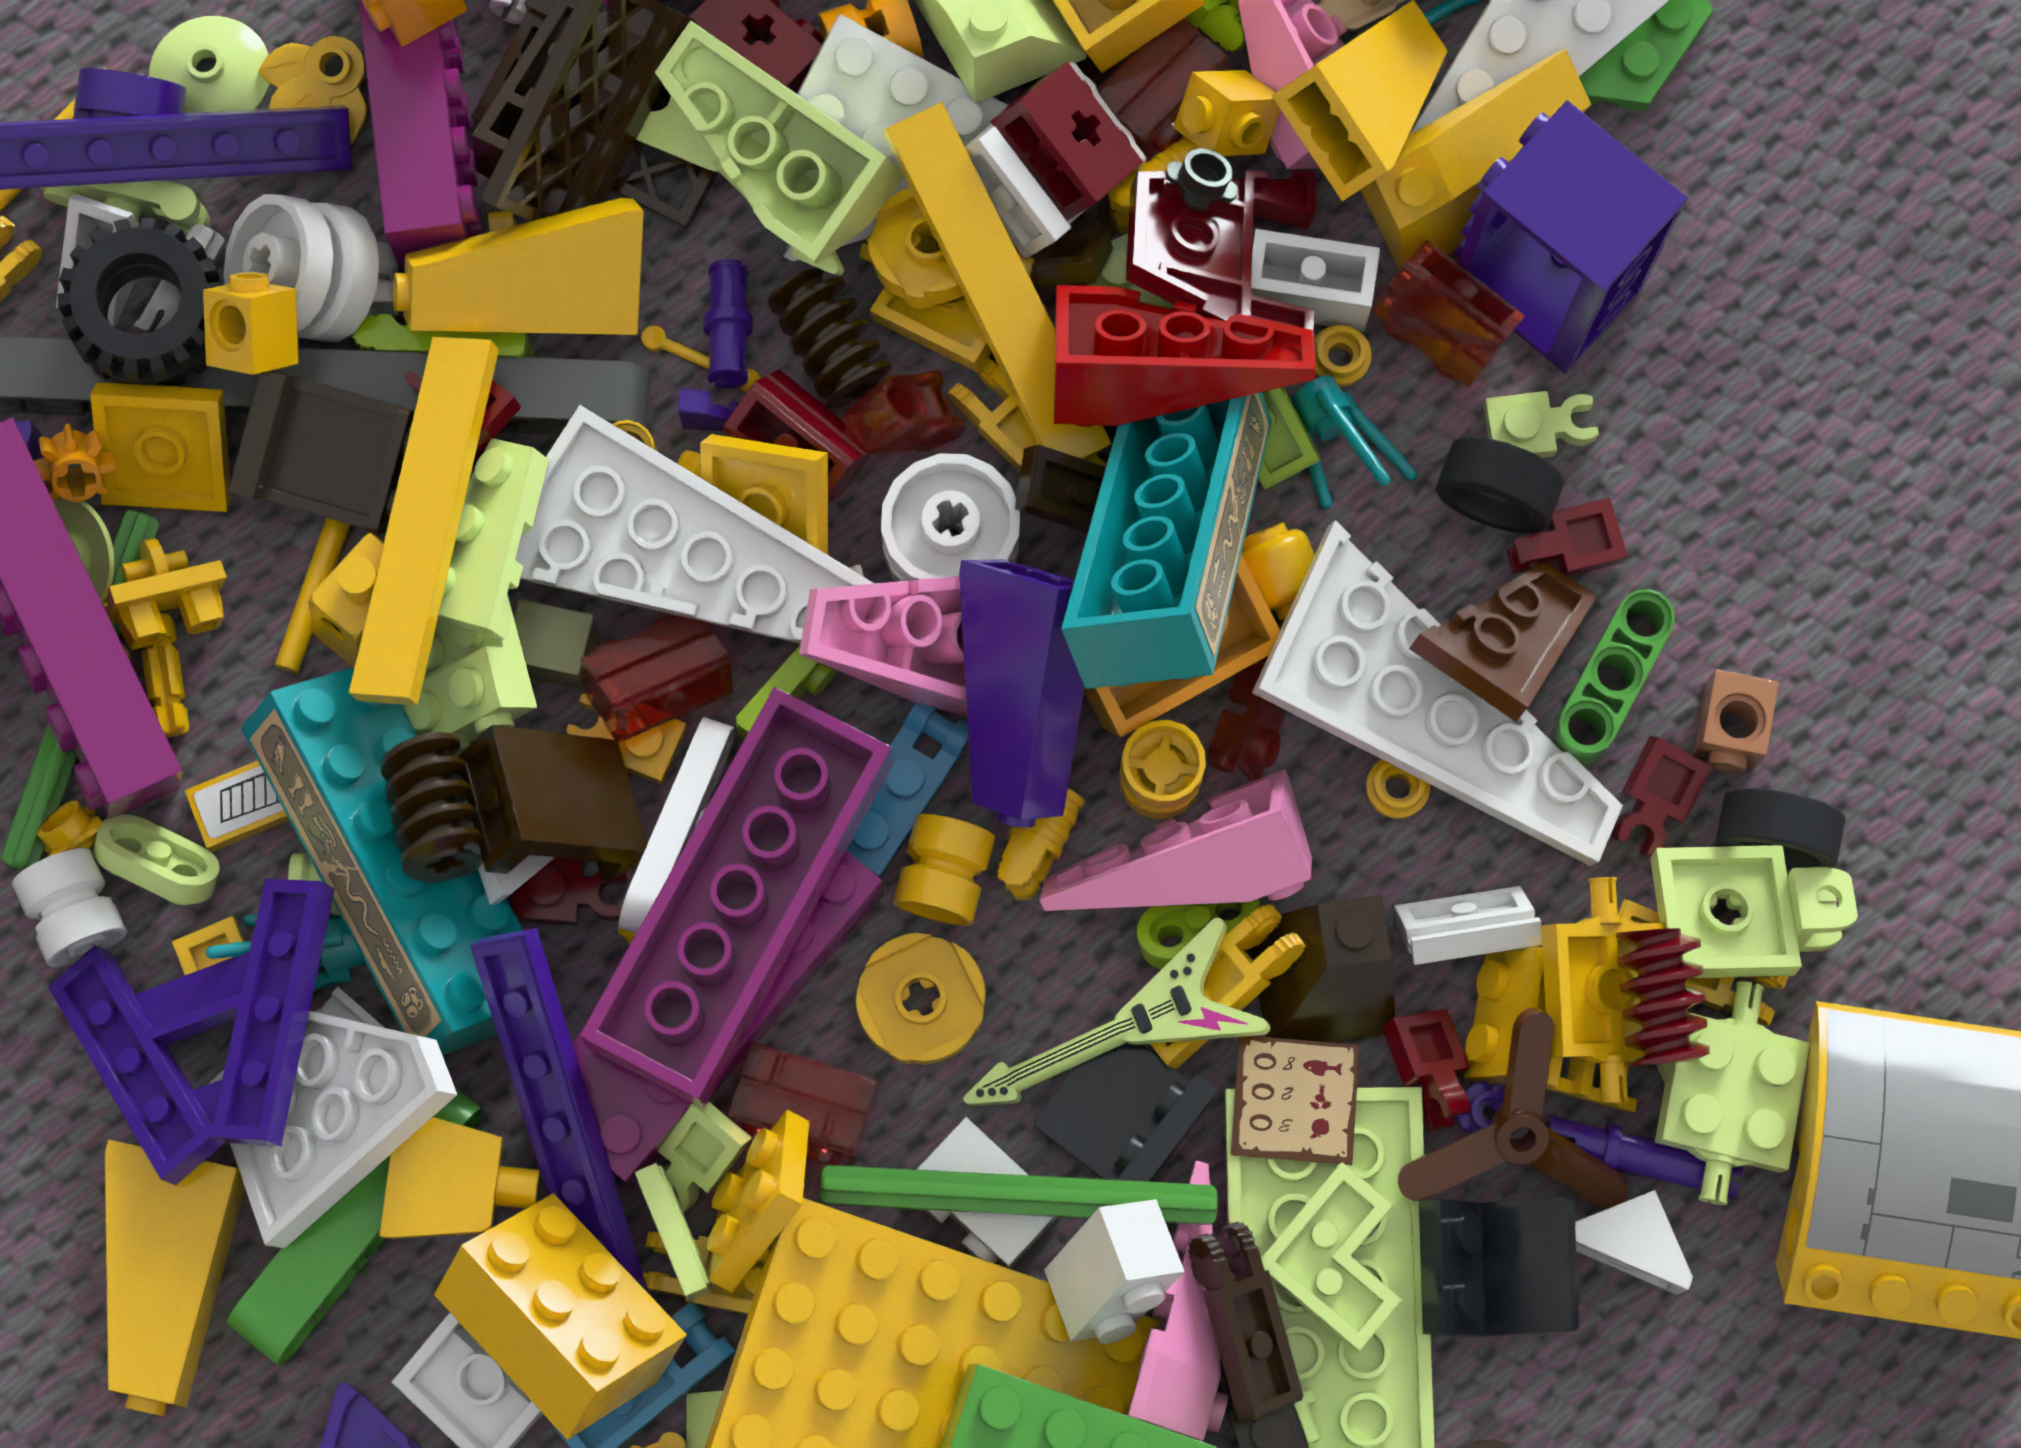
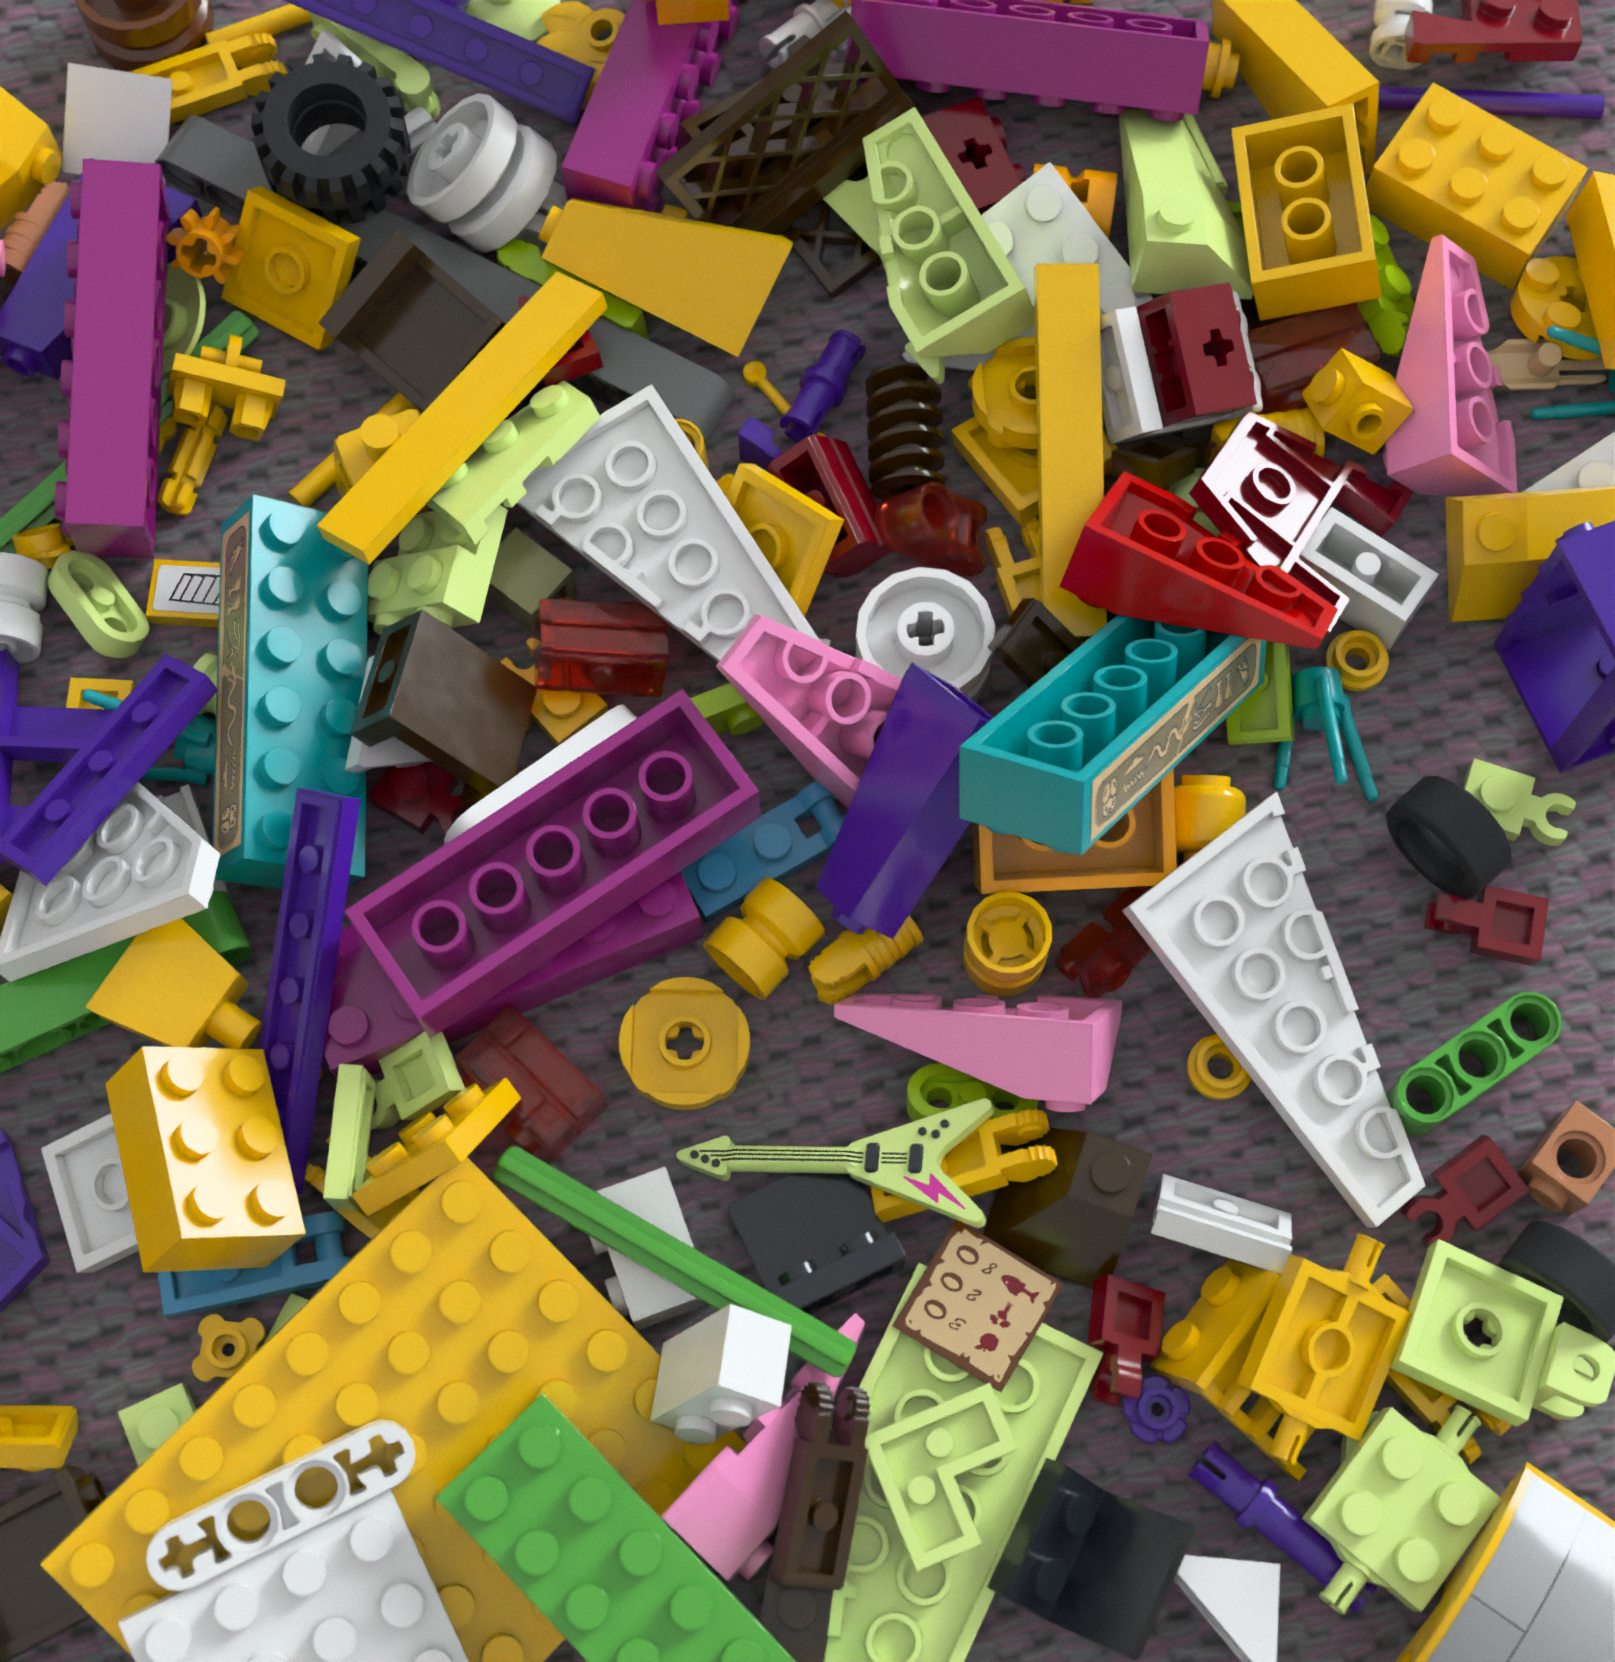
camera: 30 degrees right, 5 degrees down
(250, 324) = (406, 188): yellow brick -> none
(430, 808) = (333, 656): dark brown piece -> none
(1203, 179) = (1304, 441): pearl dark grey plate -> none
(1365, 99) = (1486, 431): yellow slope -> none
(1447, 314) = (1473, 665): clear red brick -> none
(1510, 639) = (1389, 979): reddish brown wing -> none
(1521, 1109) = (1187, 1419): reddish brown piece -> none
(1662, 996) = (1374, 1378): dark red piece -> none

